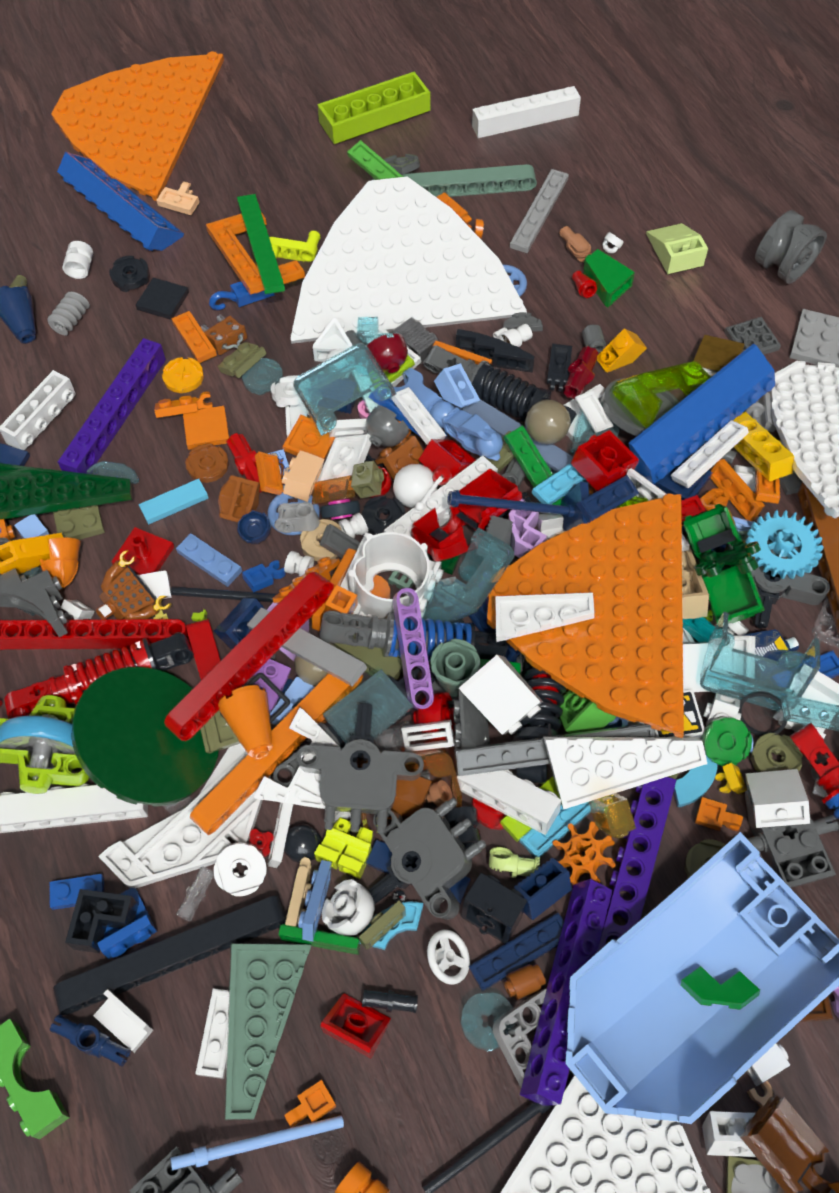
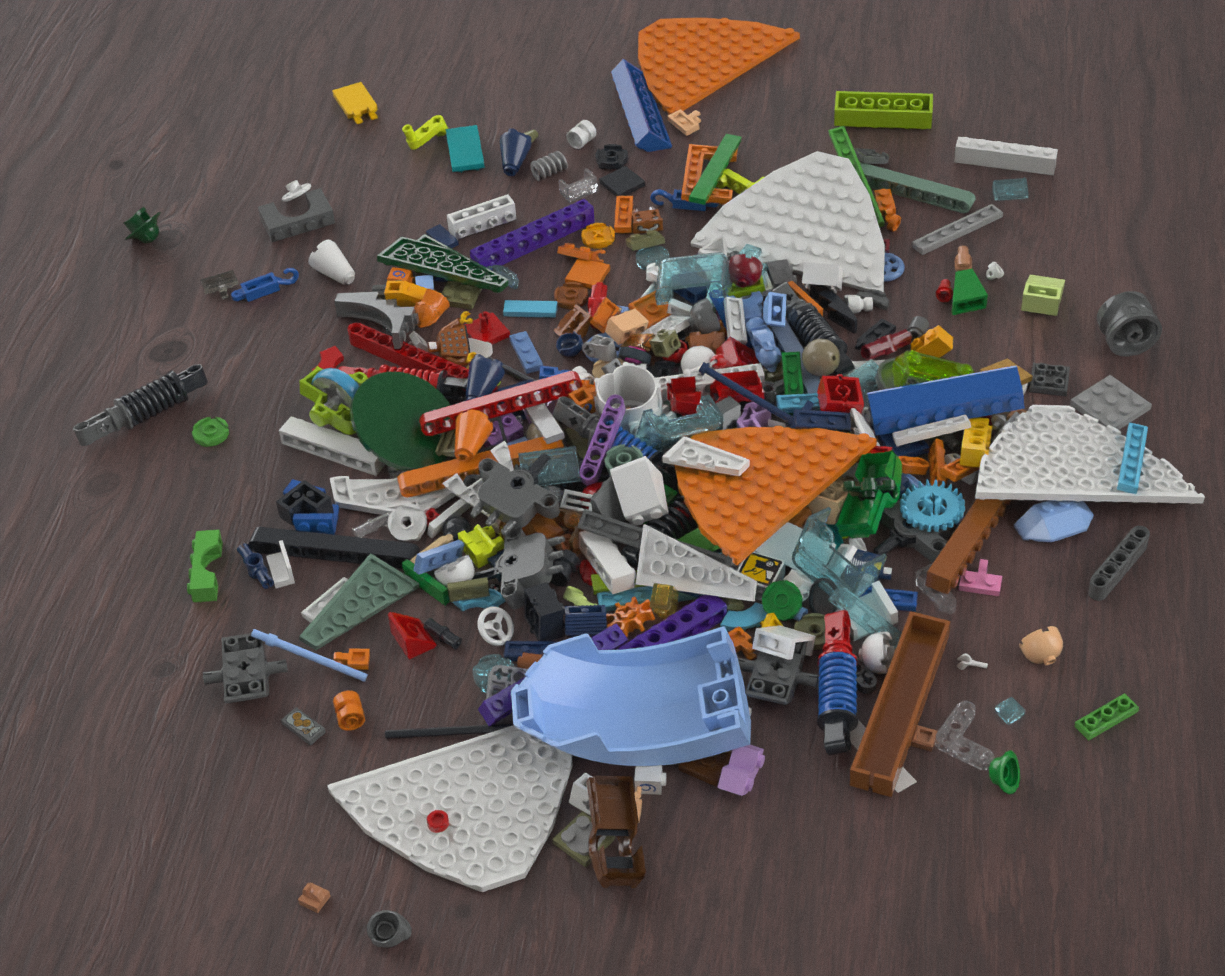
camera: 35 degrees right, 15 degrees down
(121, 325) = (580, 188): none -> clear panel
(200, 630) = (483, 376): none -> dark blue cone
(466, 323) = (823, 274): none -> white container
(555, 146) = (1010, 189): none -> clear light blue slope
(593, 412) = (867, 369): white tile -> none
(734, 992) = (644, 721): green tile -> none

